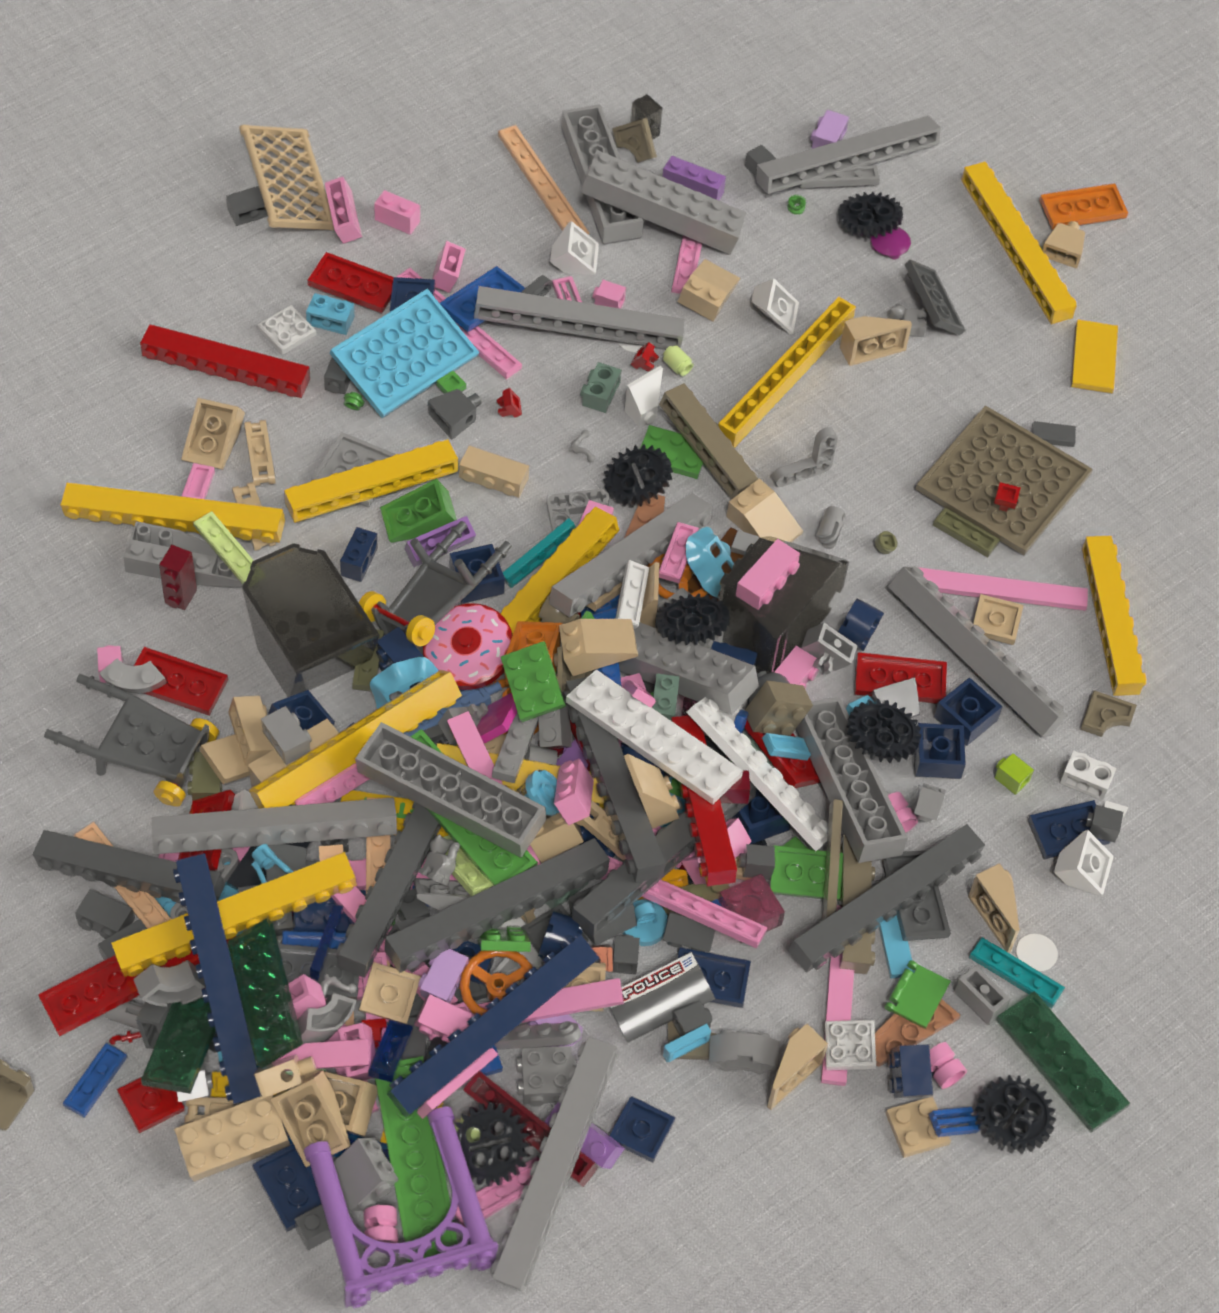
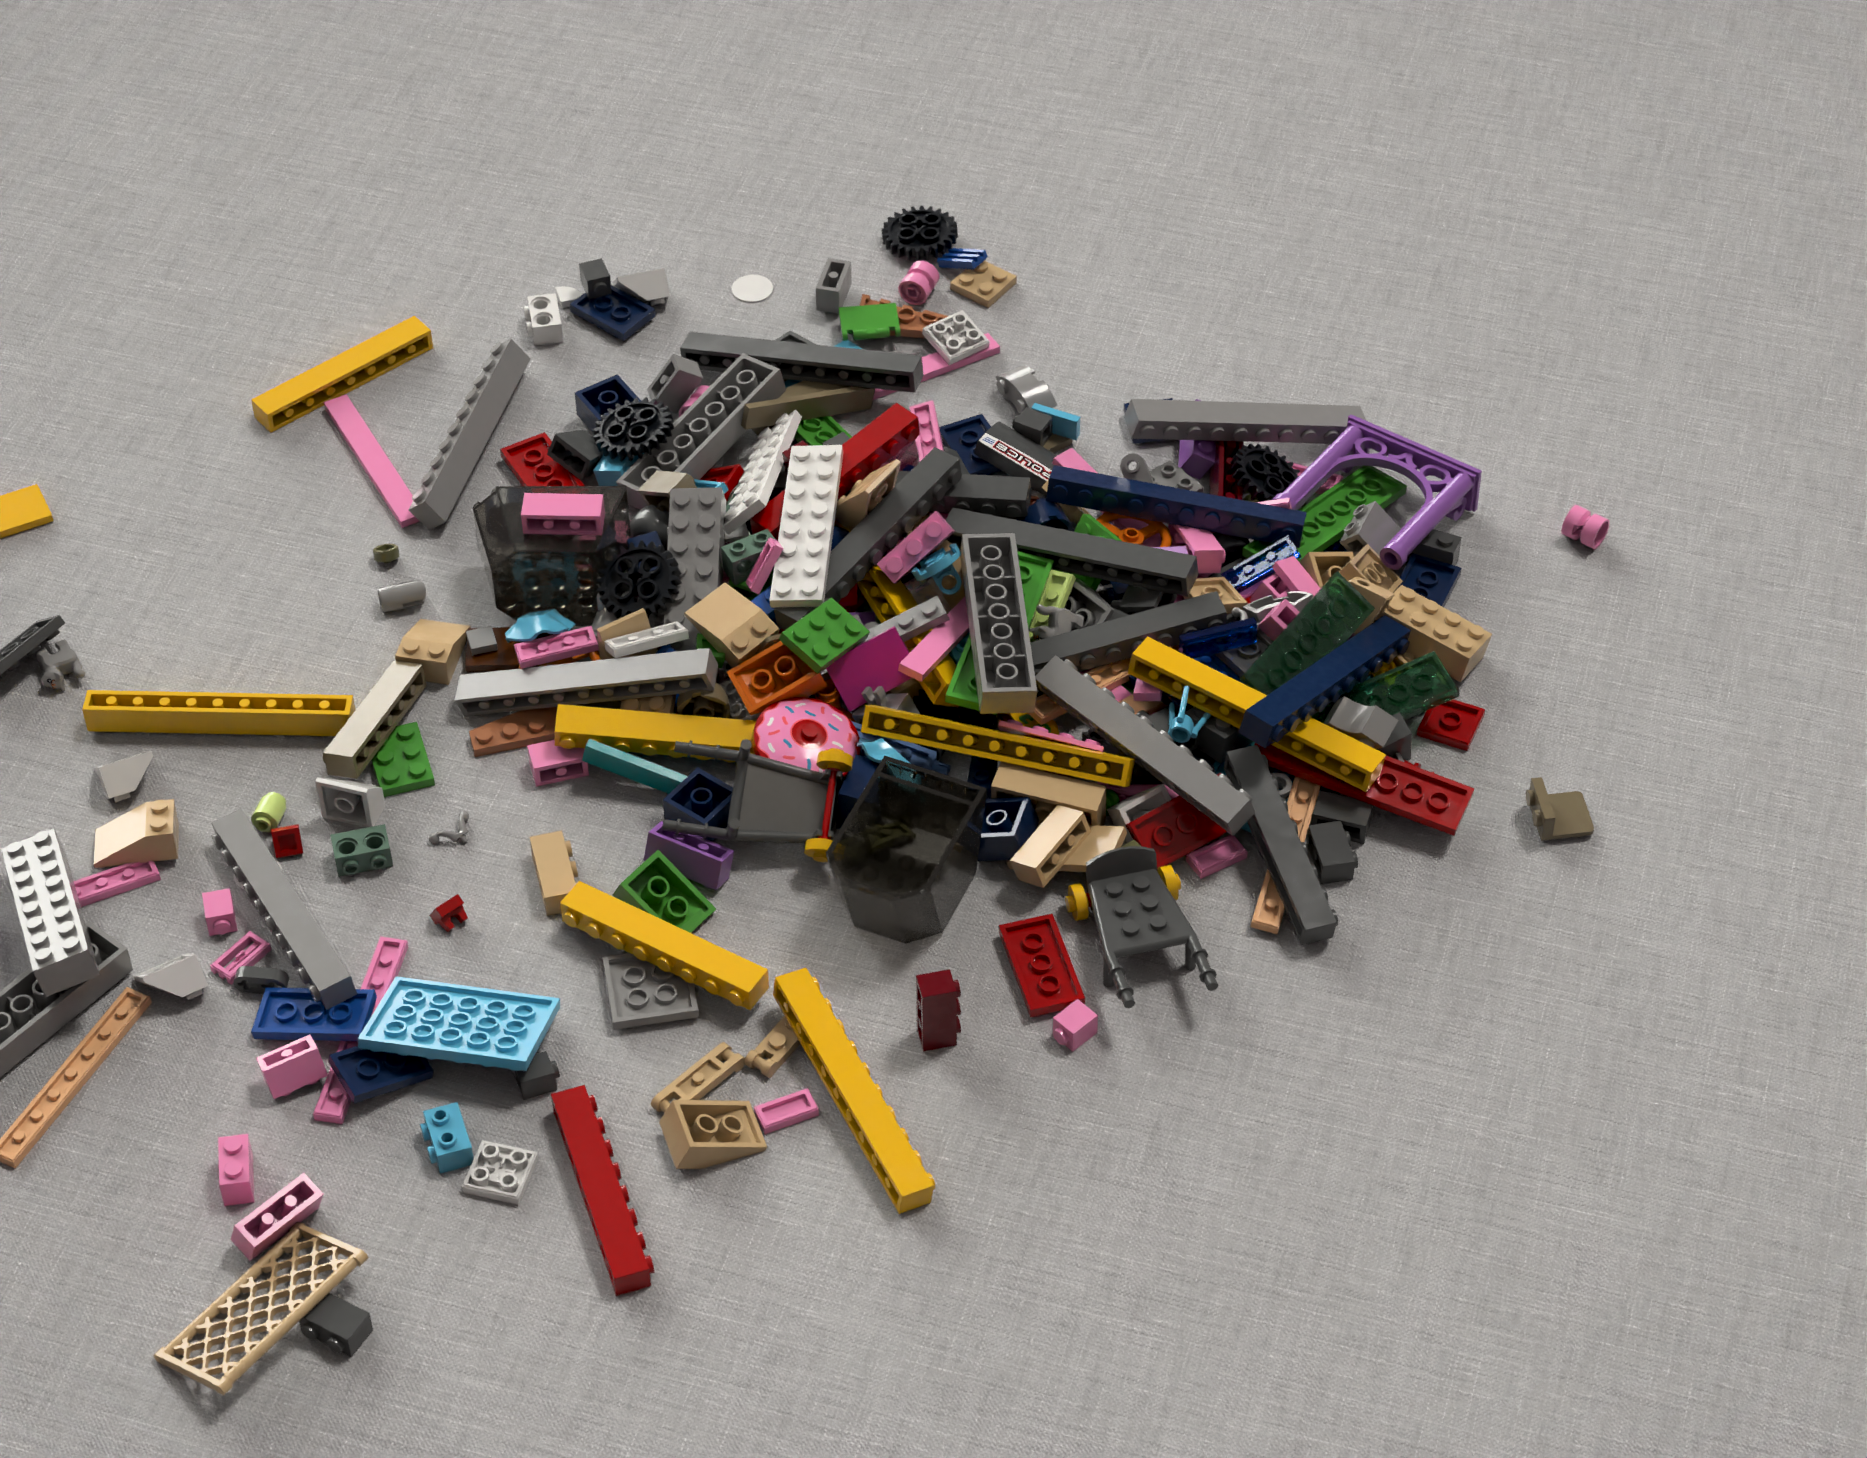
camera: 120 degrees left, 10 degrees down
(95, 1080) = (1476, 767): blue tile -> none
(133, 678) = (1082, 972): light grey brick -> none
(151, 542) = (898, 1044): light grey wedge -> none
(224, 545) = (863, 994): yellowish green tile -> none
(286, 735) = (1044, 789): light grey brick -> none
(352, 282) = (379, 1150): red plate -> none
(353, 401) = (558, 1042): bright green plate -> none
(359, 554) = (760, 913): dark blue brick -> none
(380, 1223) = (1402, 508): bright pink wheel -> none
(451, 382) = (462, 973): bright green plate -> none
(454, 411) = (500, 949): dark grey torso -> none
(564, 512) = (554, 798): light grey beam -> none
(623, 483) = (482, 769): black gear -> none
(801, 1058) = (1008, 347): tan slope -> none
(819, 463) = (326, 640): light grey beam -> none
(873, 338) = (120, 662): tan slope -> none
(910, 1071) = (950, 284): dark blue brick -> none
(966, 532) = (320, 510): olive tile -> none
(969, 707) = (546, 408): dark blue brick -> none
(996, 903) = (739, 304): tan slope -> none
(998, 618) = (414, 442): tan plate -> none
(1001, 451) = (229, 509): dark tan plate -> none
(1007, 496) = (264, 478): red tile -> none
(1013, 773) = (586, 361): lime brick -> none
(1016, 971) = (785, 288): teal tile -> none
(1055, 433) = (134, 503): dark grey tile -> none
(1063, 1061) = (844, 226): clear green plate -> none
(1106, 712) = (461, 342): dark tan tile -> none

